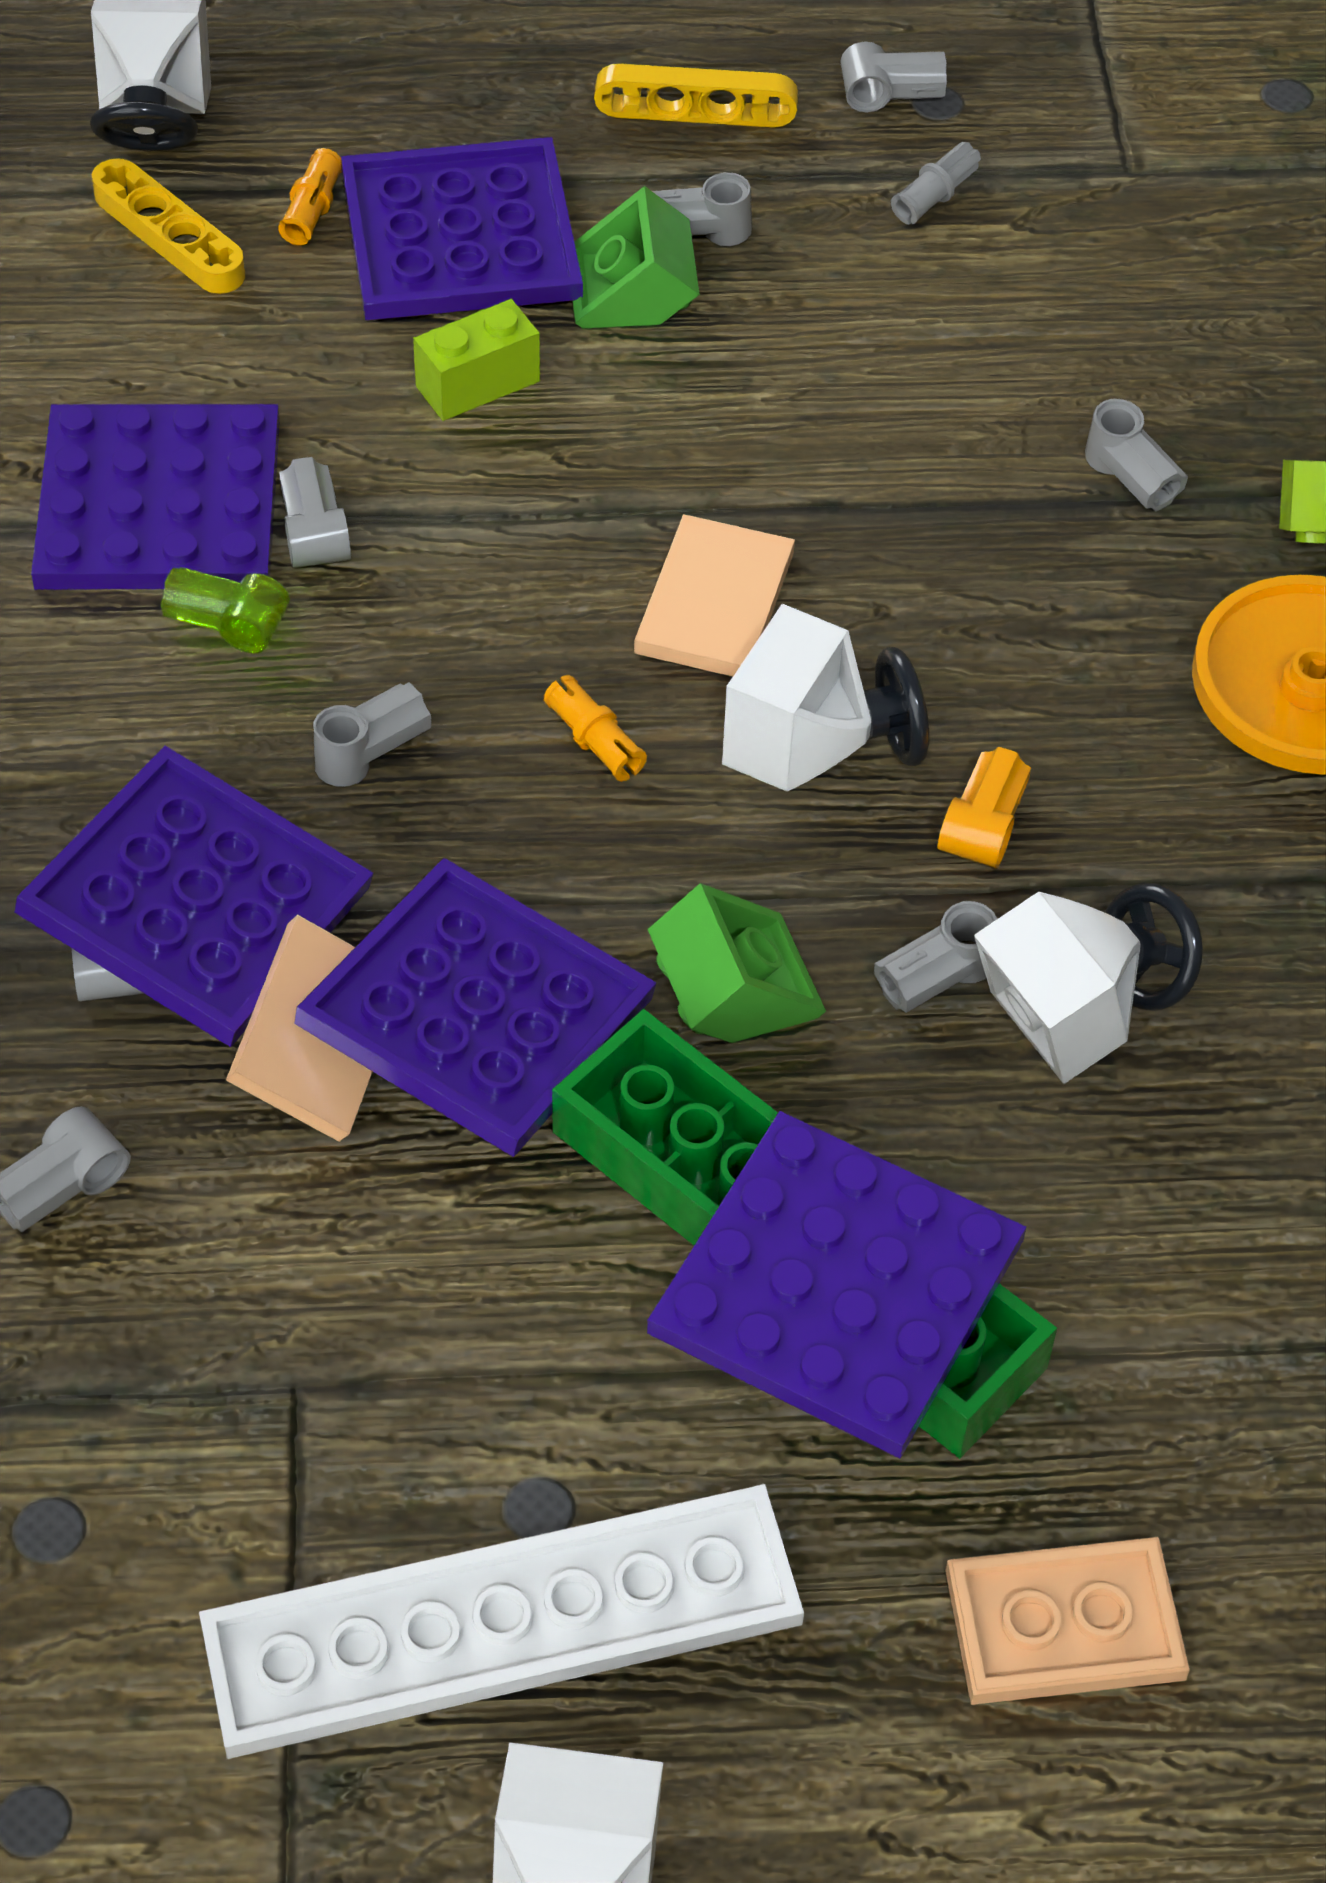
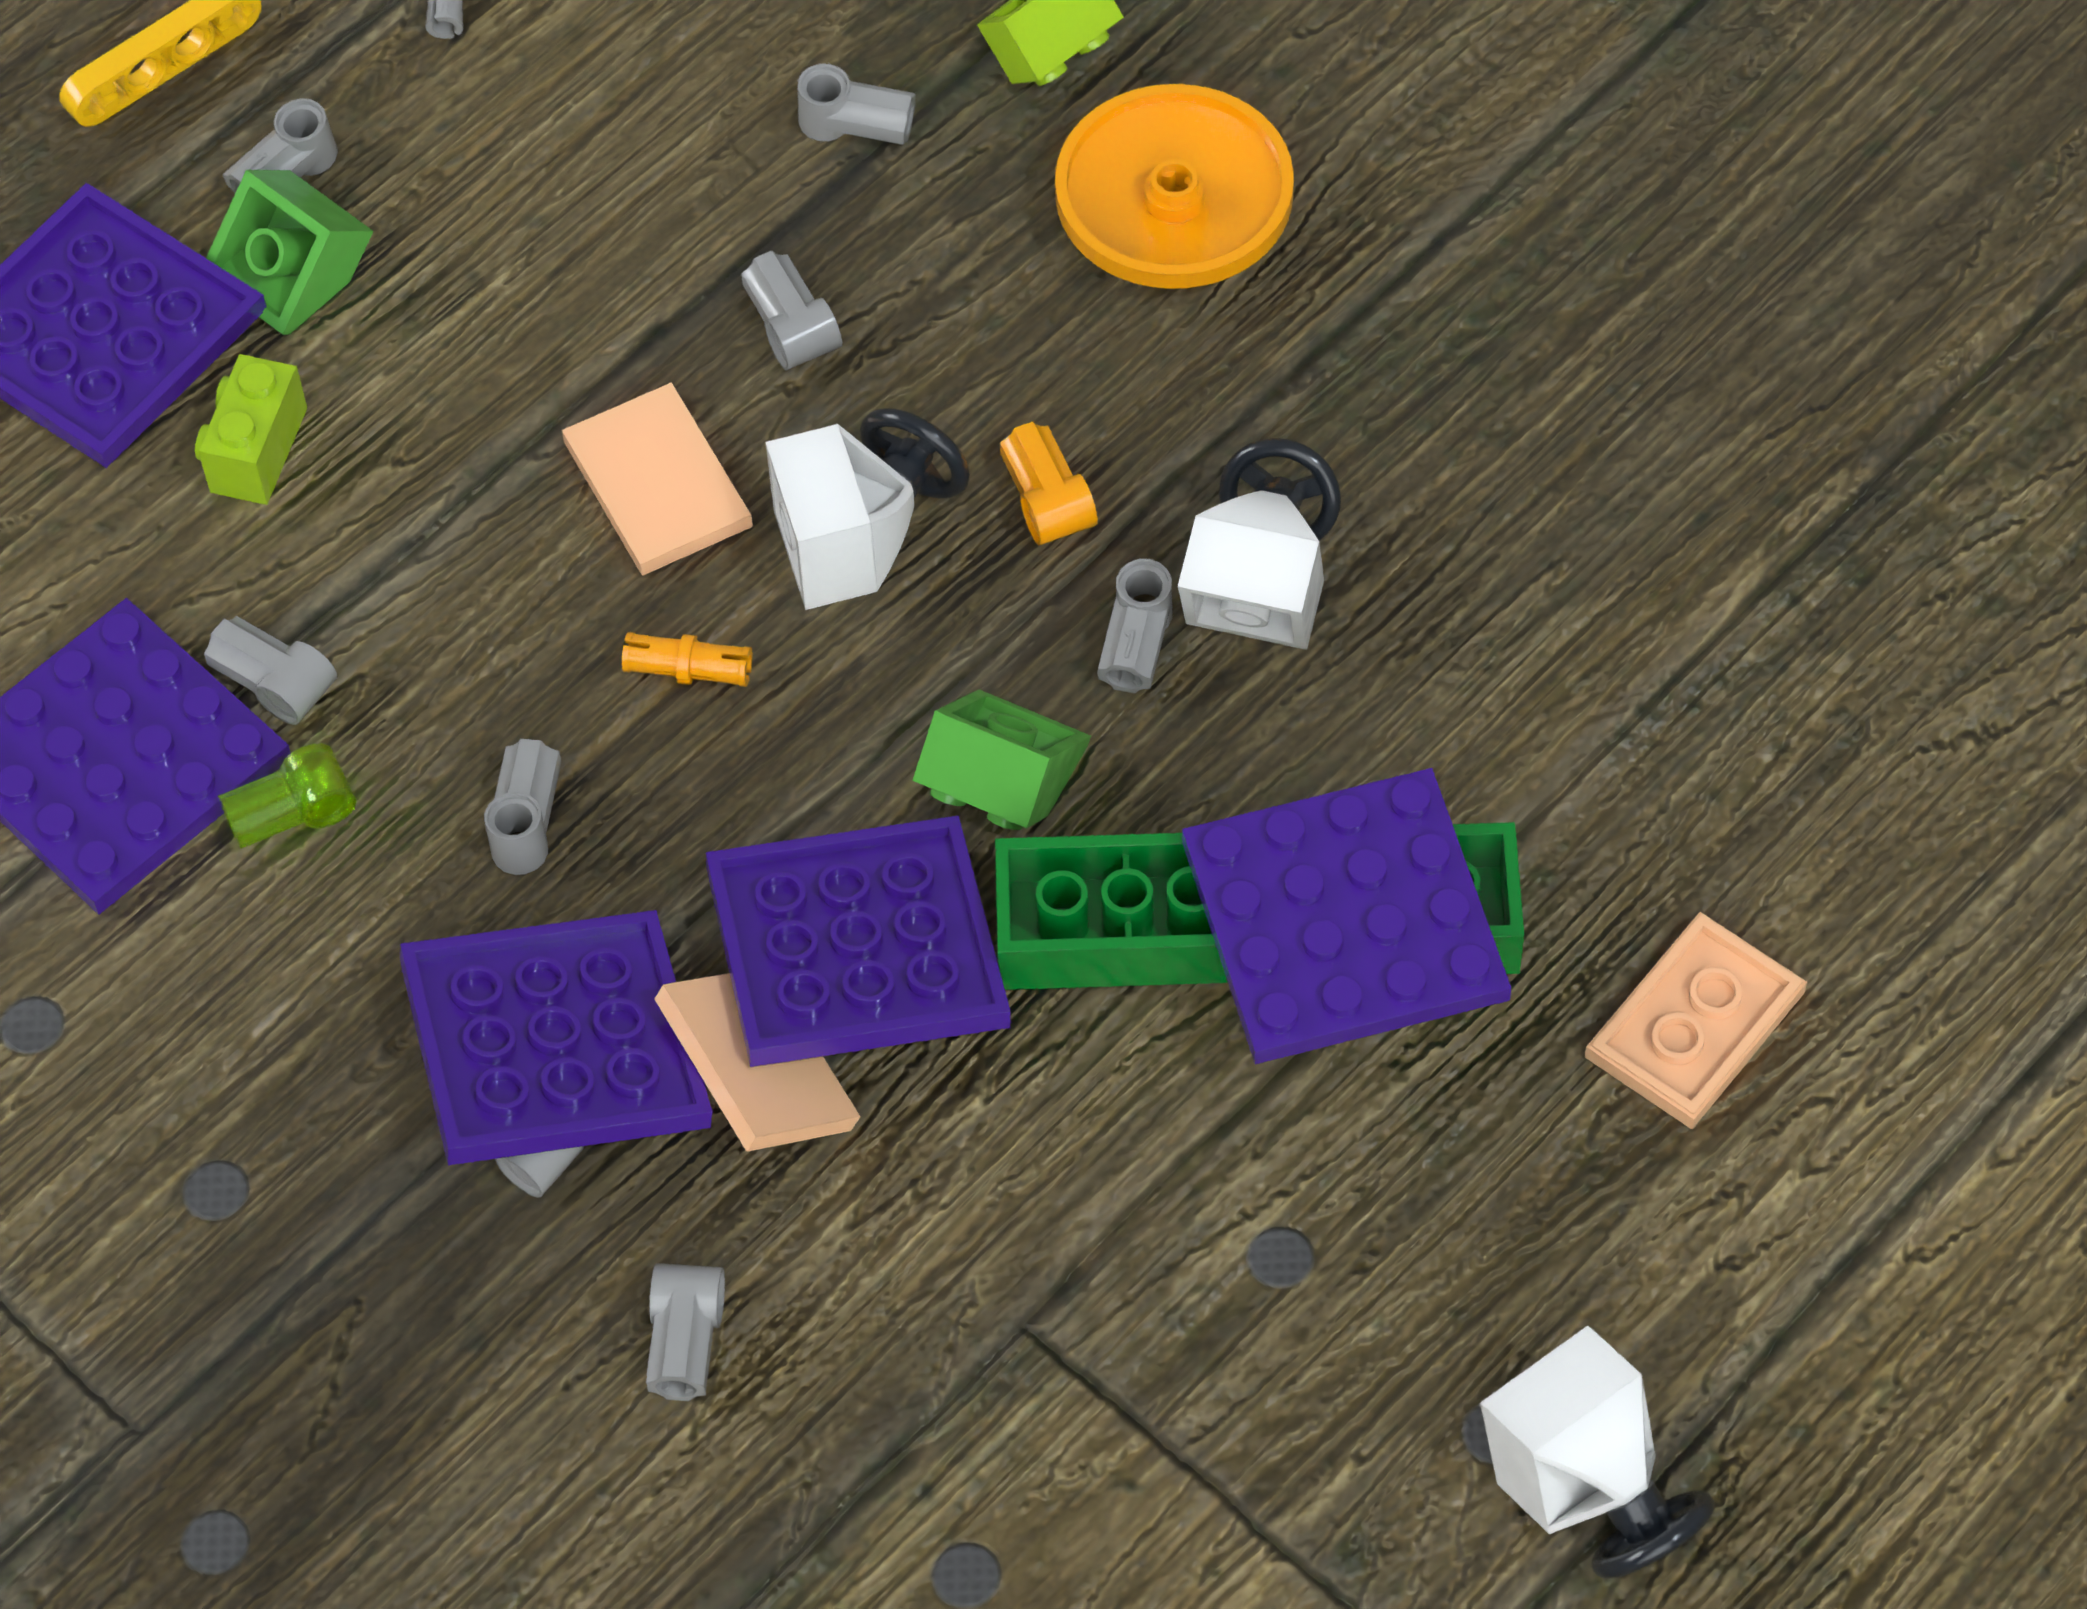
camera: 40 degrees left, 5 degrees up
(498, 1620) = (1344, 1352): white plate -> none
(931, 560) = (794, 321): none -> light grey piece

